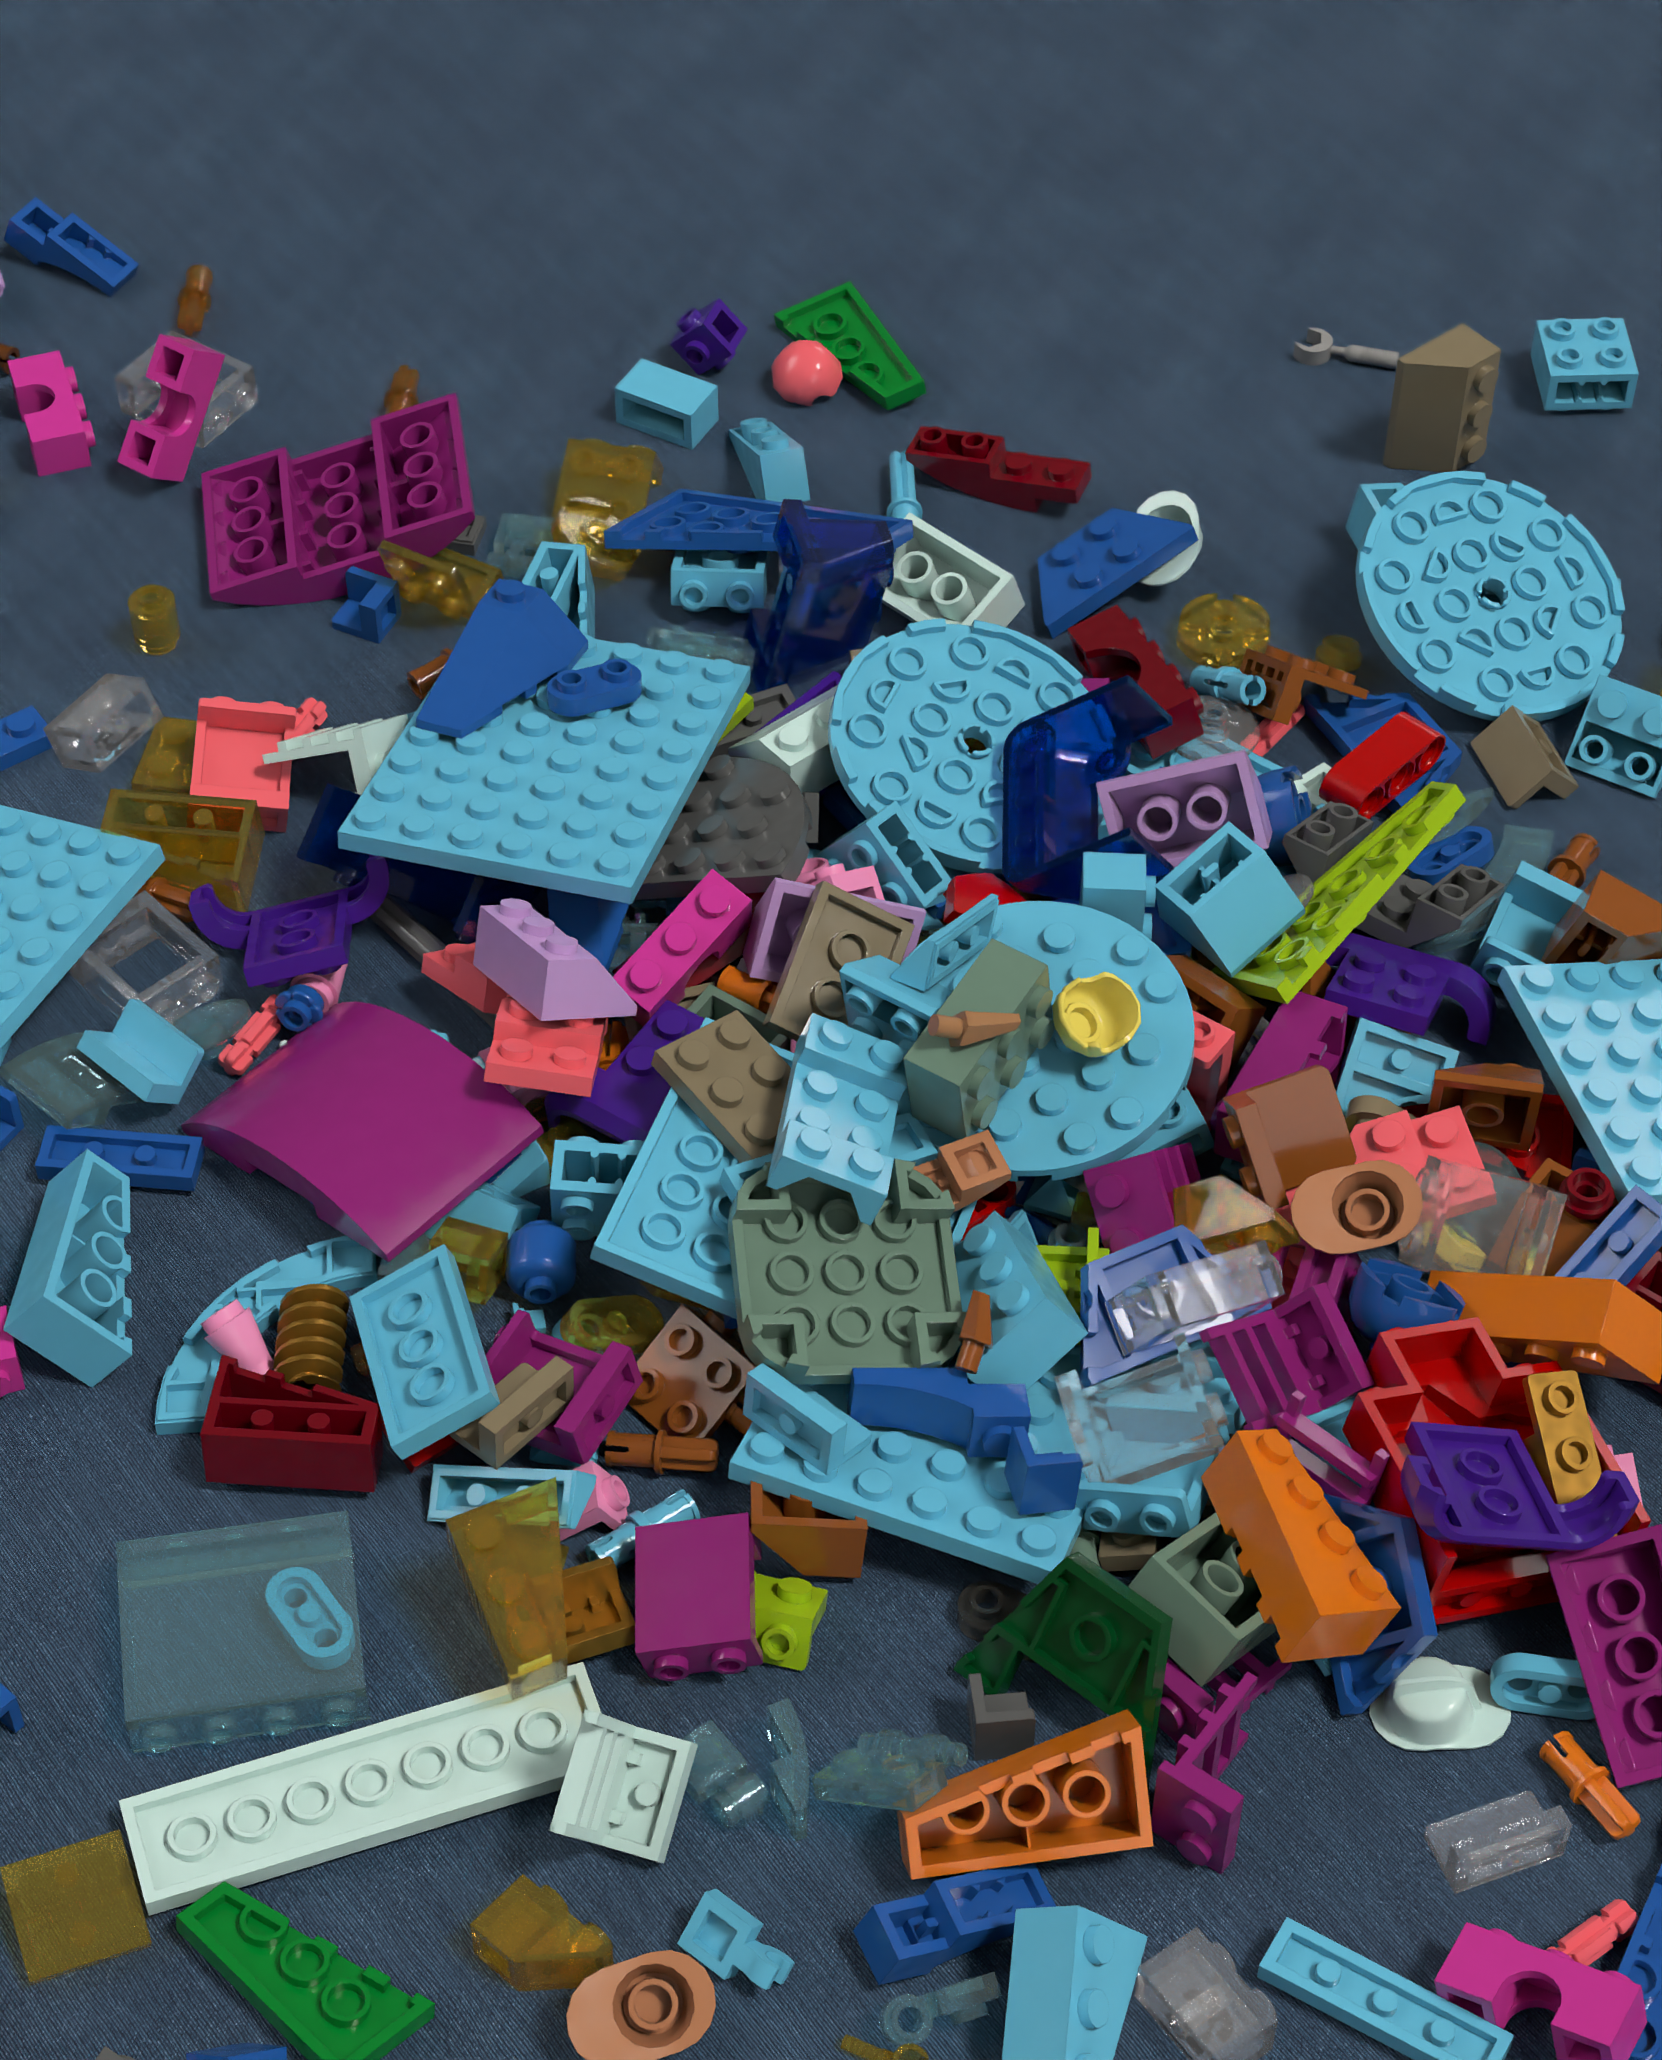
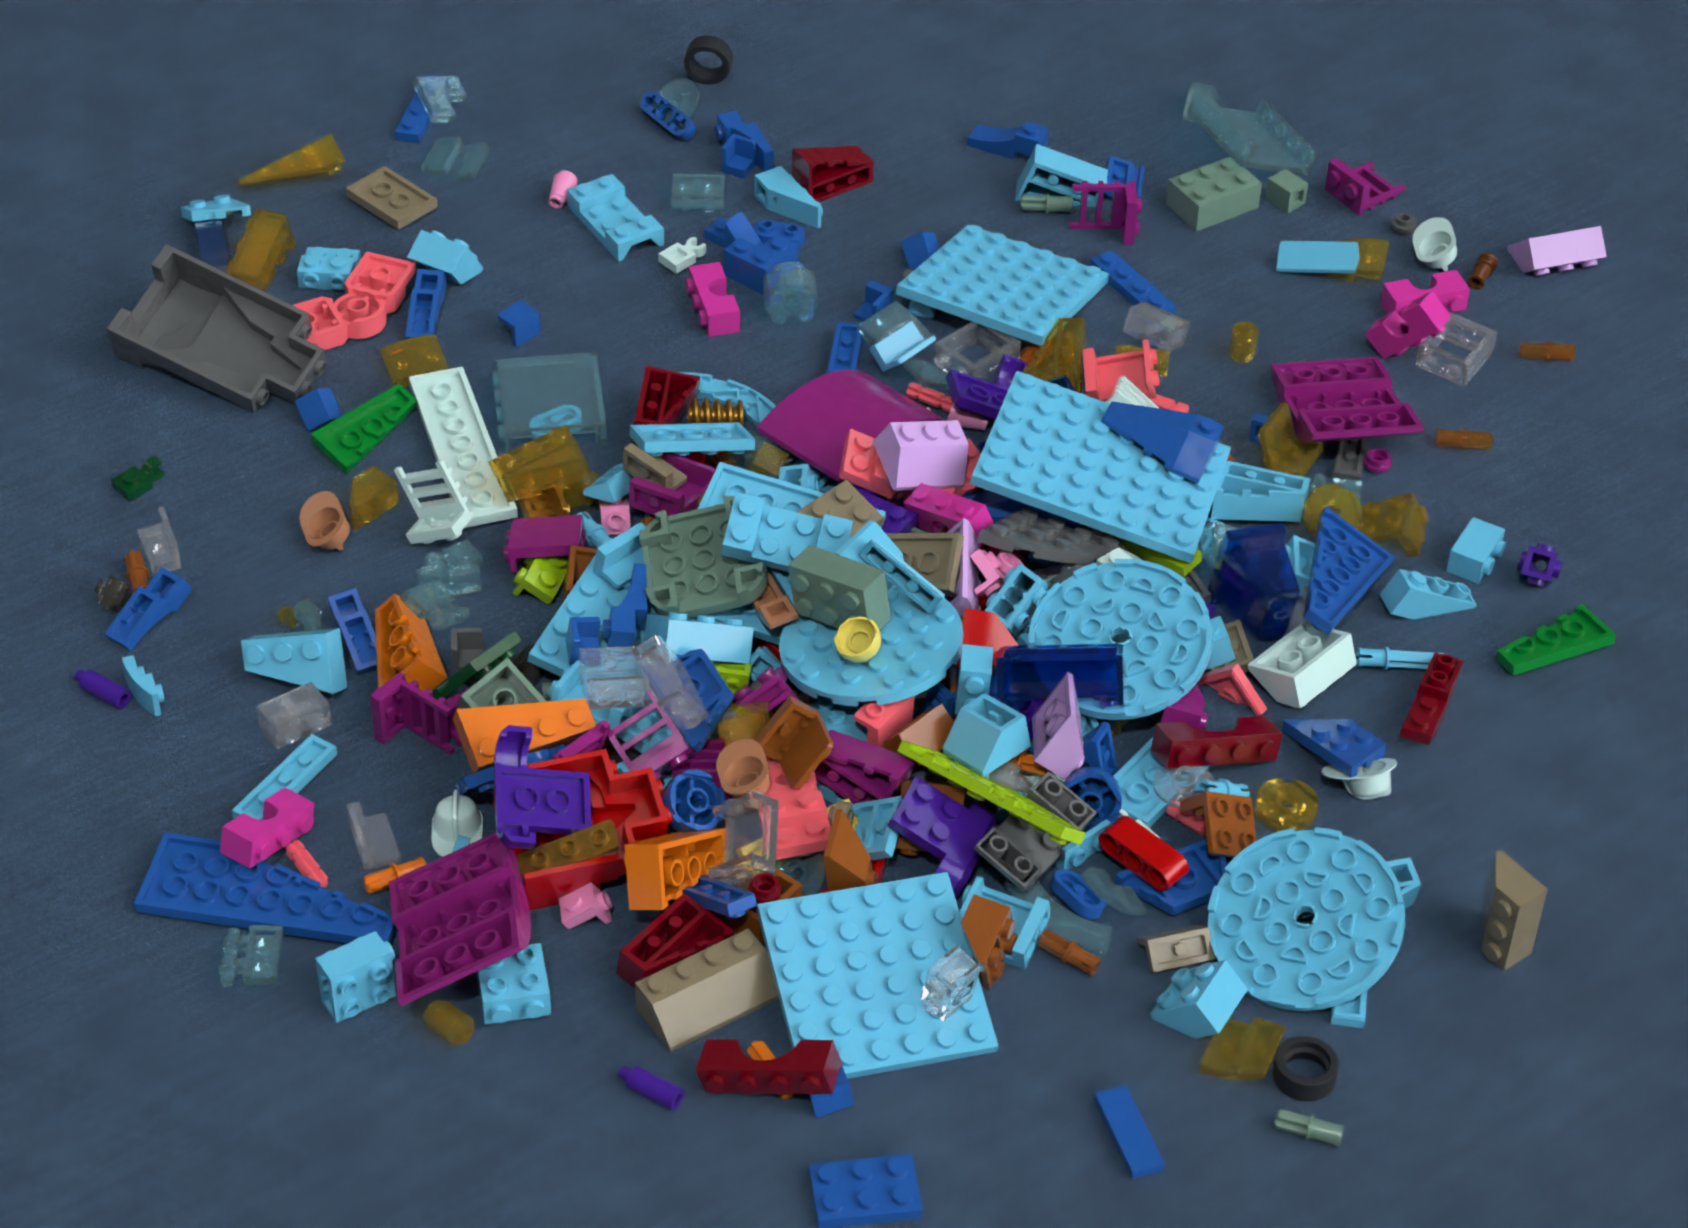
camera: 90 degrees right, 5 degrees down
(69, 244) = (1582, 295): blue slope -> none
(75, 1271) = (757, 331): medium azure wedge -> none
(236, 1334) = (721, 388): bright pink cone -> none
(299, 1007) = (941, 404): blue plate -> none
(594, 688) = (1149, 475): blue plate -> none
(724, 1941) = (363, 556): medium azure plate -> none
(806, 372) = (1519, 615): coral hair -> none
(971, 1026) = (818, 559): medium nougat bar -> none
(975, 1333) = (660, 604): dark orange bar -> none
(1323, 348) = (1604, 890): light grey piece -> none
(1584, 364) = (1596, 1022): medium azure brick -> none

